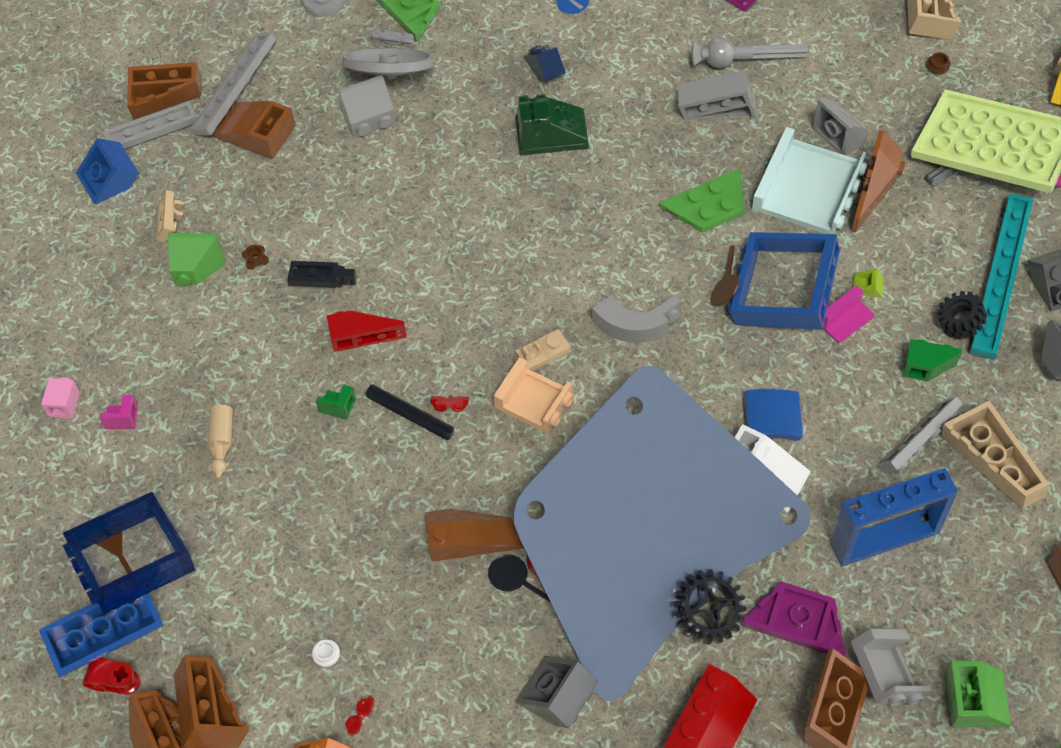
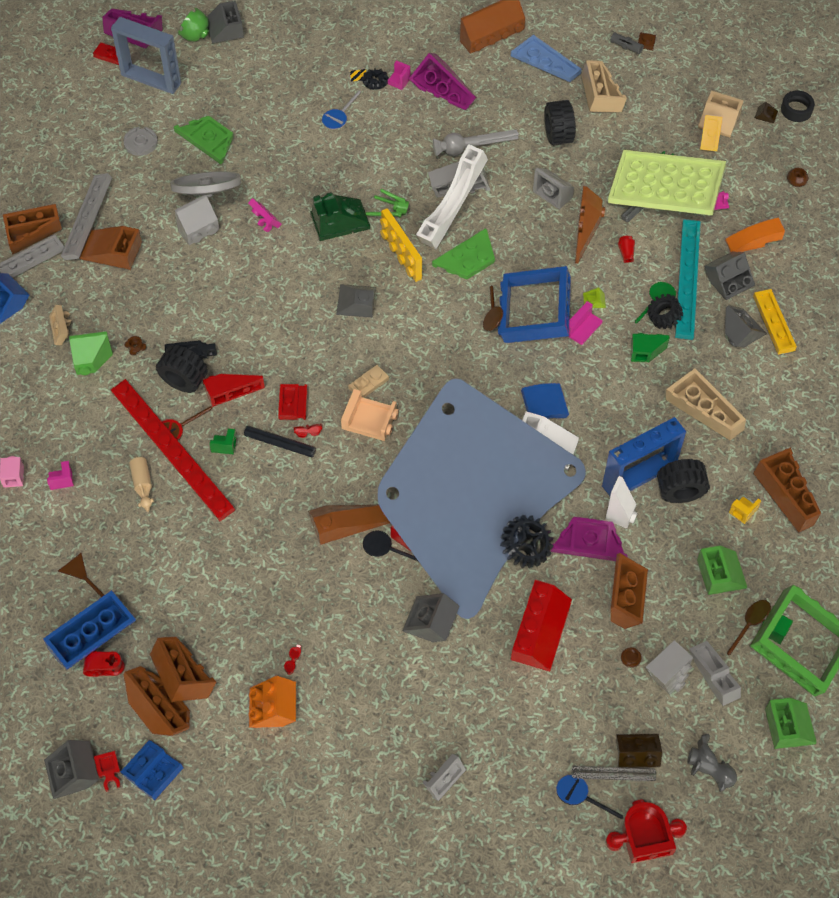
camera: 15 degrees left, 0 degrees up
(141, 580) = (110, 593): clear blue window -> none
(270, 404) = (173, 450): none -> red plate
(274, 374) = (176, 427): none -> reddish brown piece
(302, 296) = (181, 368): none -> black tyre
(326, 653) = (258, 621): white plate -> none
(392, 37) = (202, 164): light grey axle -> none
(437, 361) = (292, 402): none -> red plate
(460, 116) = (259, 210): none -> dark pink plate
(545, 62) = (324, 168): dark blue slope -> none
(550, 240) = (356, 300): none -> dark grey slope
(622, 175) = (401, 245): none -> yellow plate
(632, 122) = (400, 204): none -> bright green plant
(635, 326) = (432, 354): light grey arch -> none
(727, 90) = (439, 221): none -> white arch
(809, 185) = (538, 233): light aqua panel -> none
(850, 577) = (621, 505): none -> white slope
(865, 42) = (559, 122): none -> black tyre
(886, 668) = (655, 561): light grey panel -> none
(925, 221) = (627, 245): none -> red cone
(925, 430) = (654, 396): light grey plate -> none
(939, 63) = (615, 131): reddish brown plate -> none
(944, 557) = (683, 481): none -> black tyre
(957, 283) = (657, 290): none -> green piece
(1025, 611) = (744, 509): none -> yellow panel

